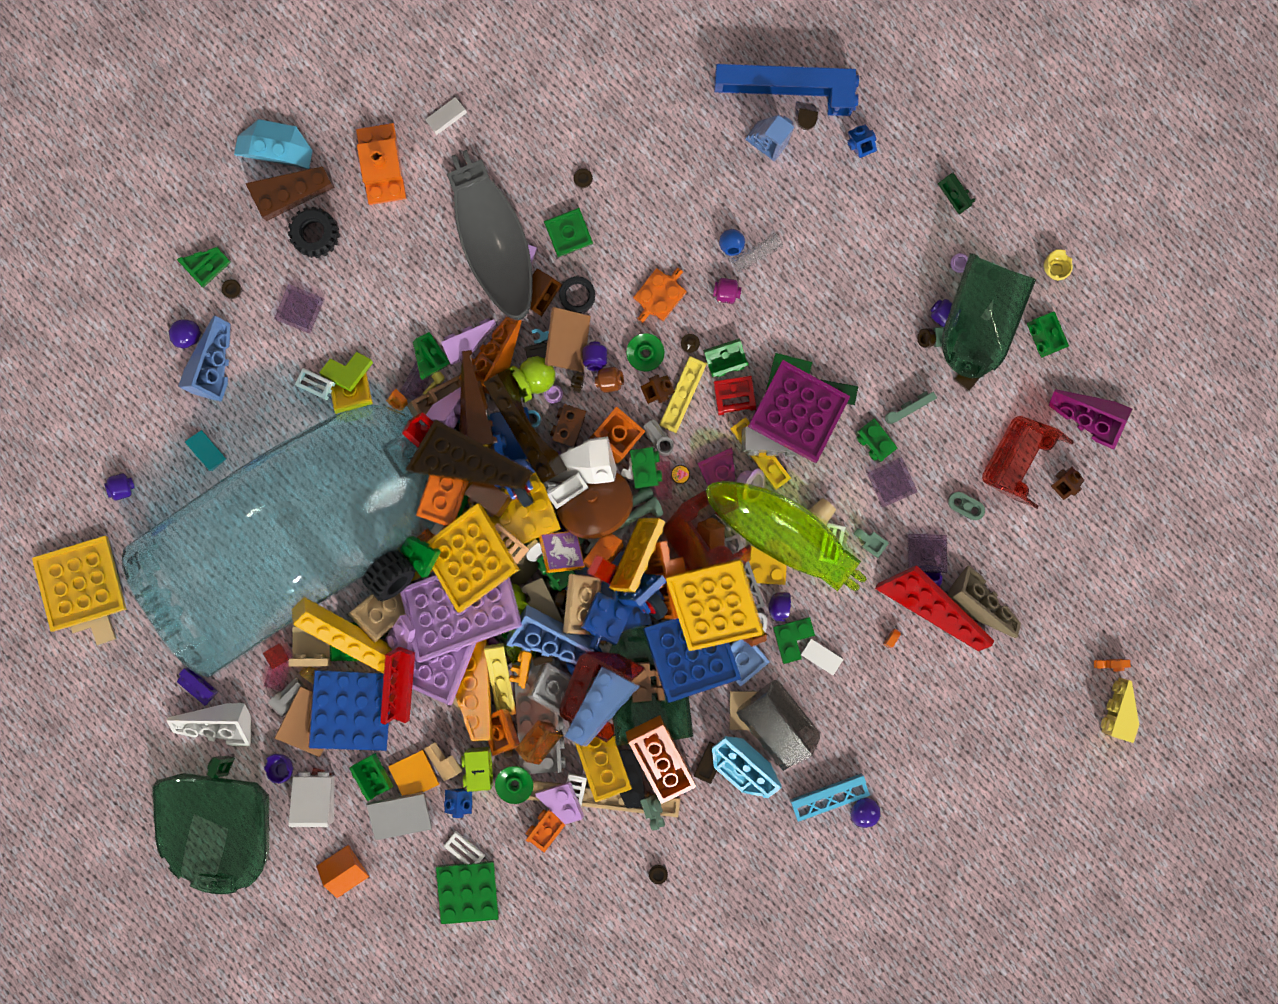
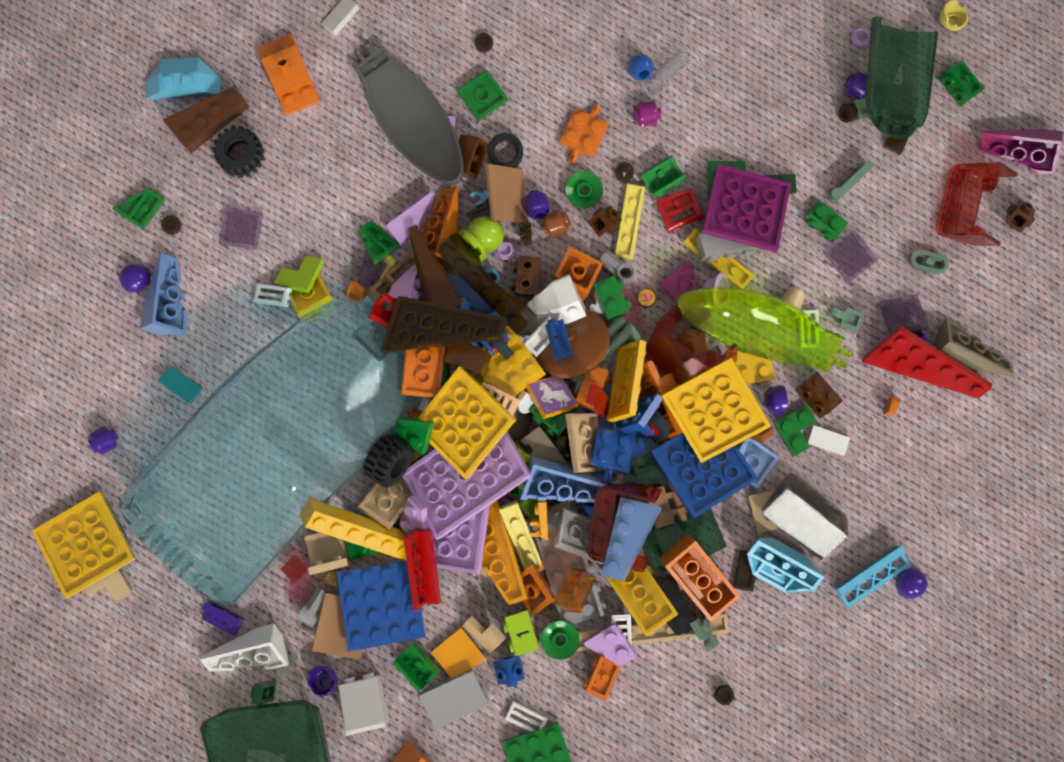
camera: 15 degrees left, 5 degrees down
(581, 499) = (559, 339): none -> blue hinge
(822, 611) = (818, 395): none -> reddish brown brick

